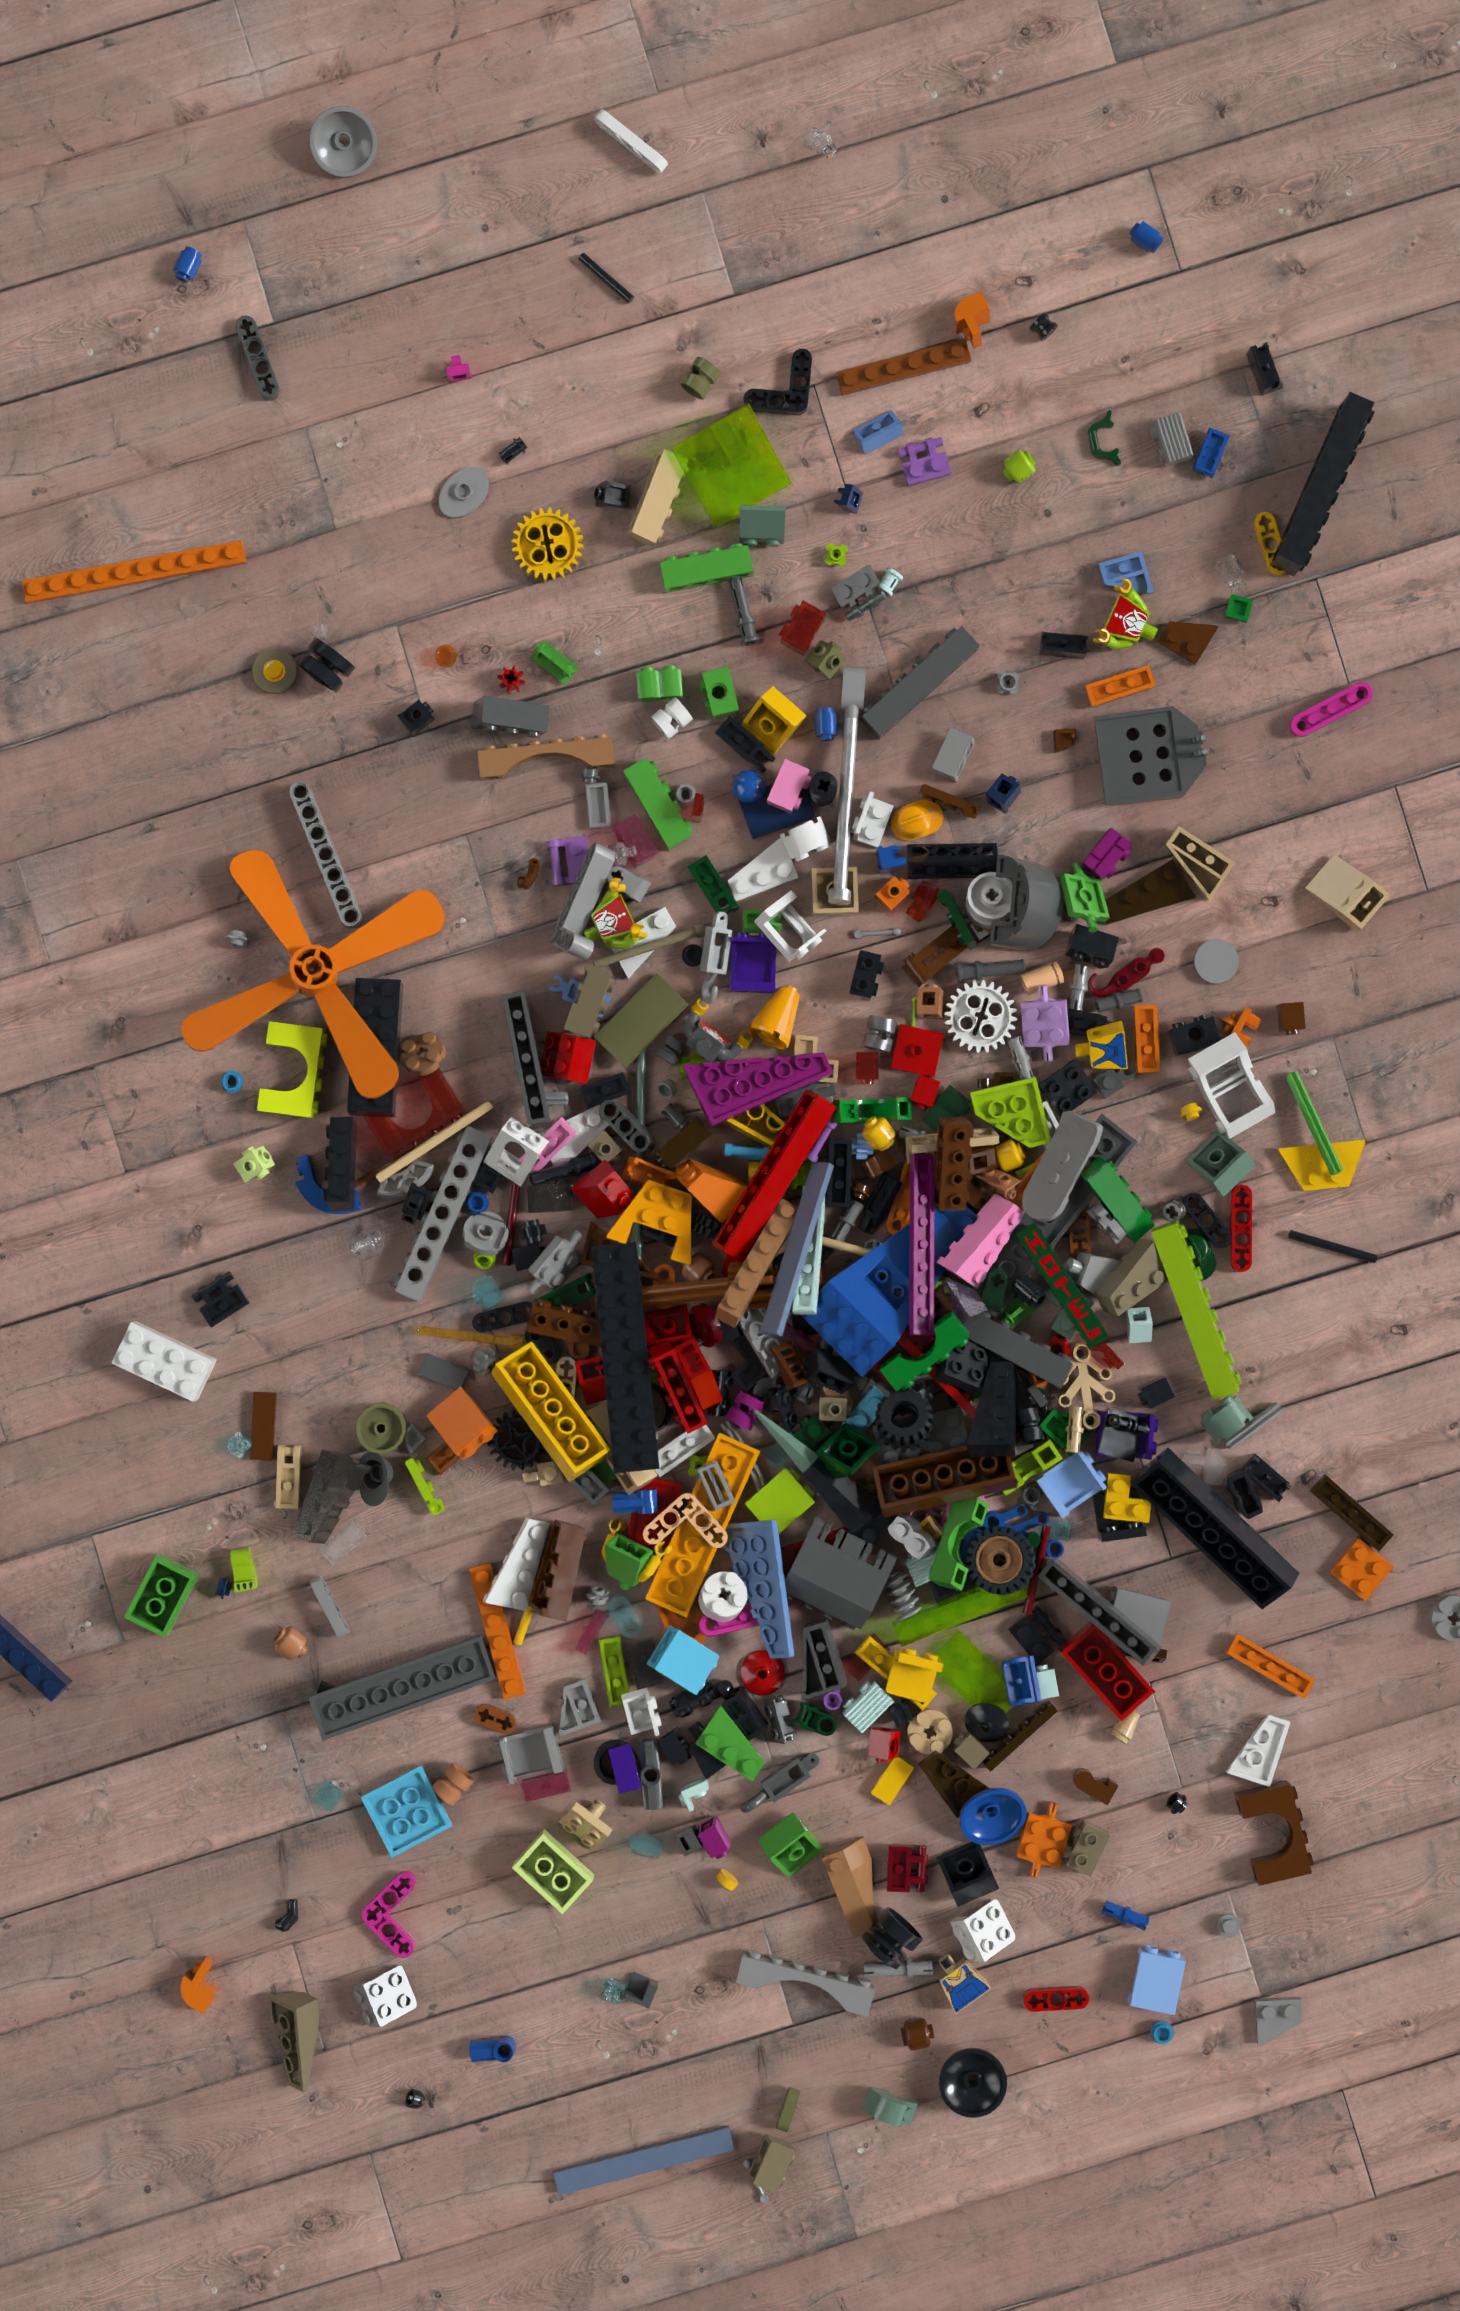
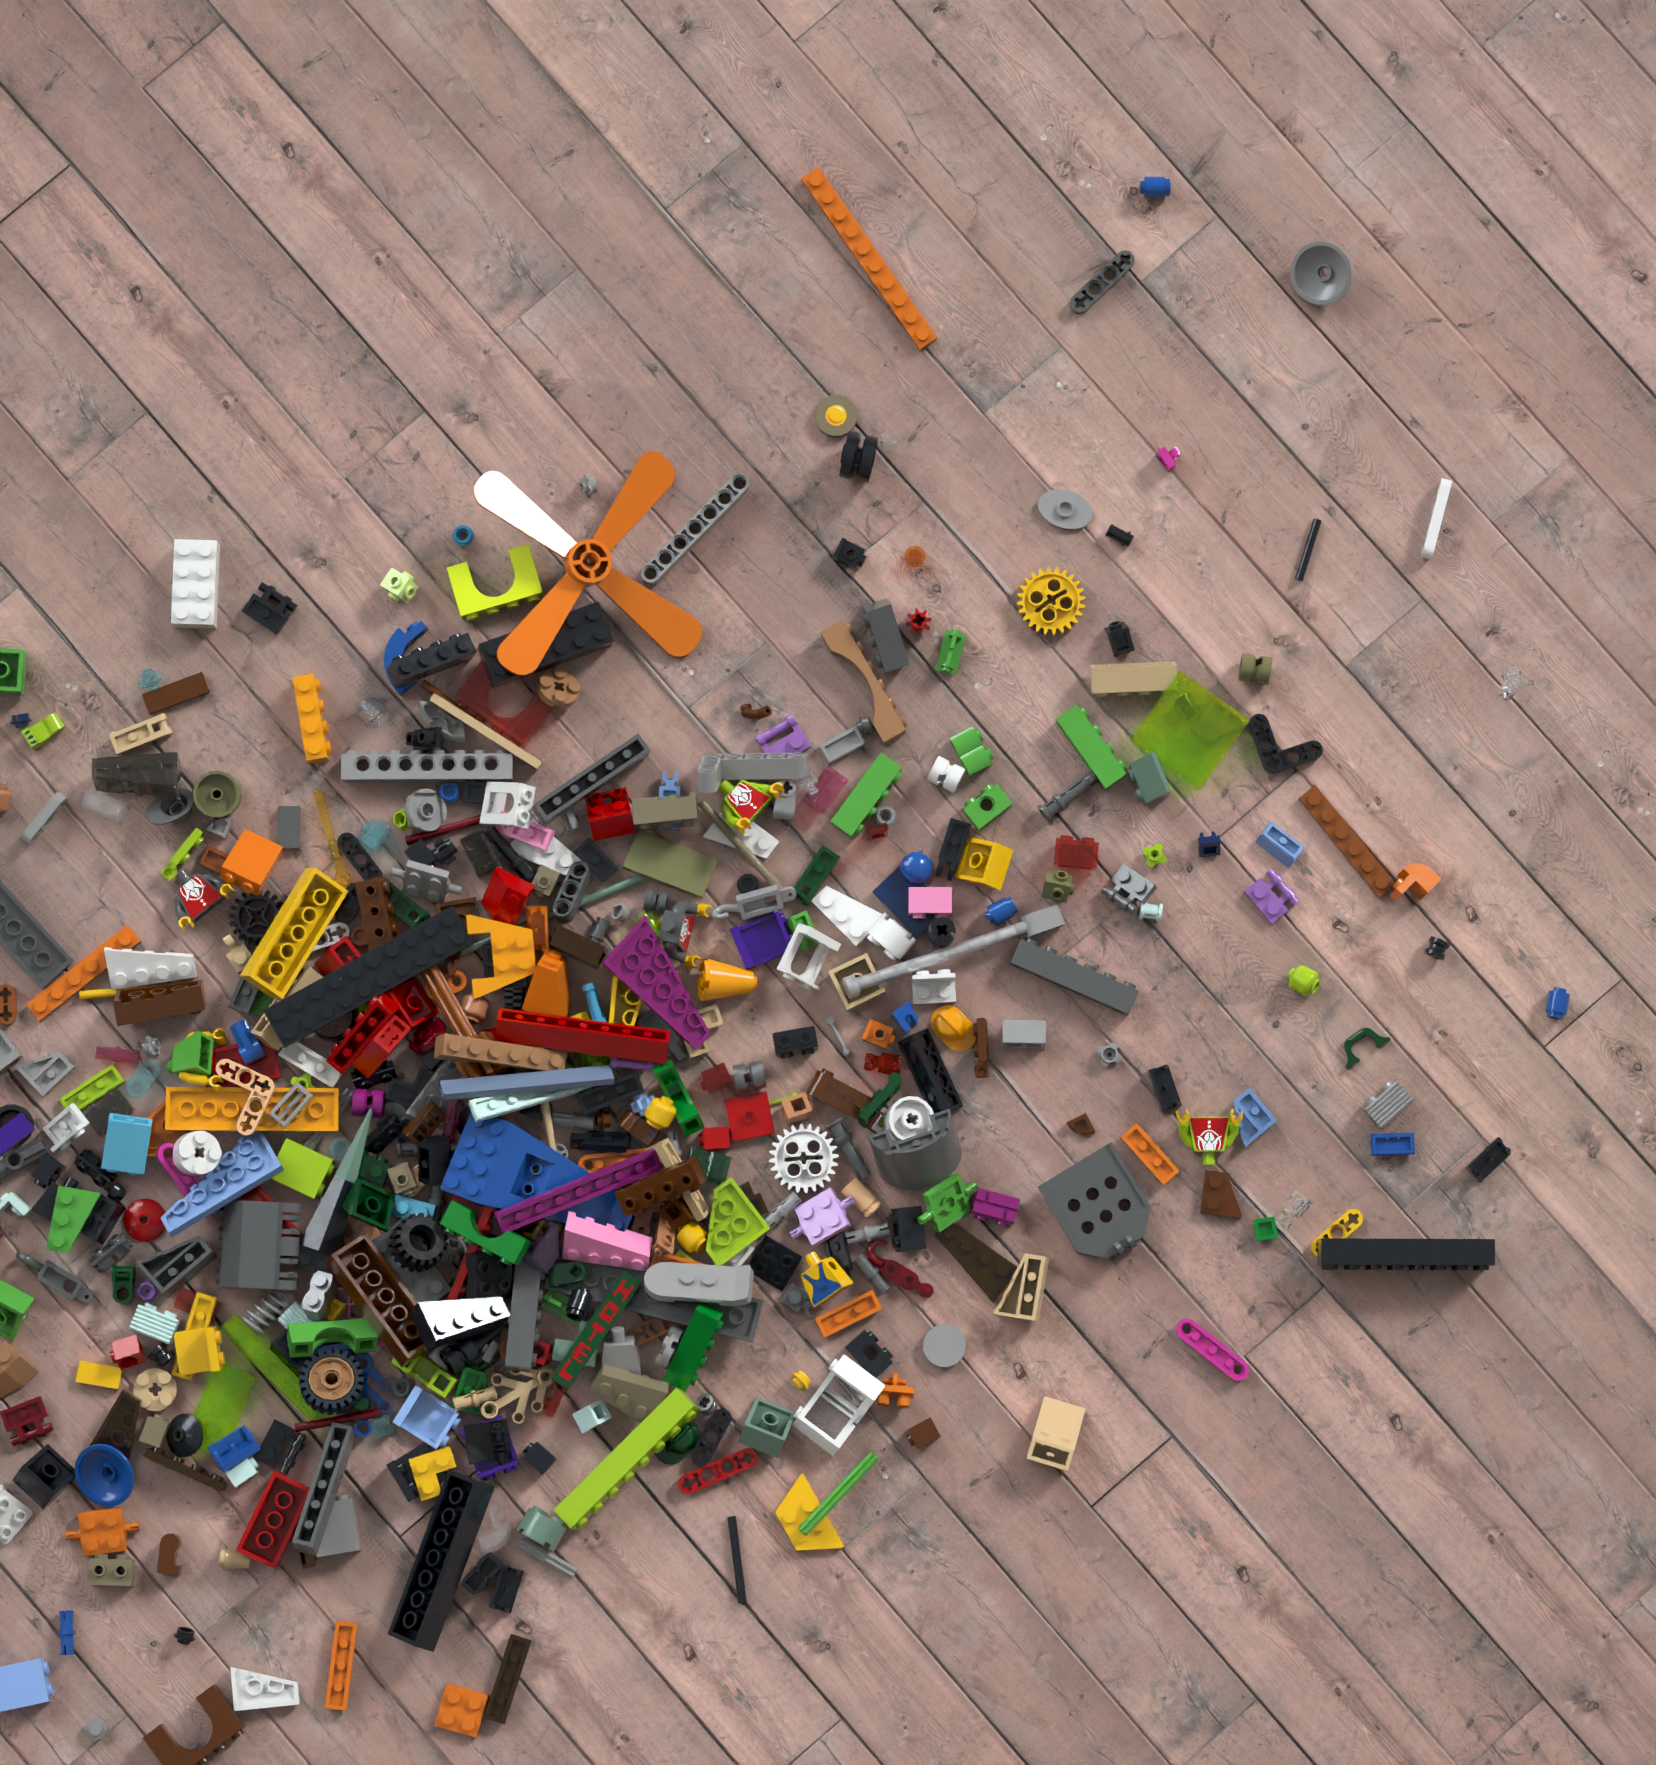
camera: 65 degrees right, 5 degrees down
(346, 1305) = (311, 719): none -> light orange brick
(472, 1488) = (198, 896): none -> torso
(485, 1361) = (314, 858): light grey gear -> none
(1002, 785) = (1011, 1086): dark blue brick -> none

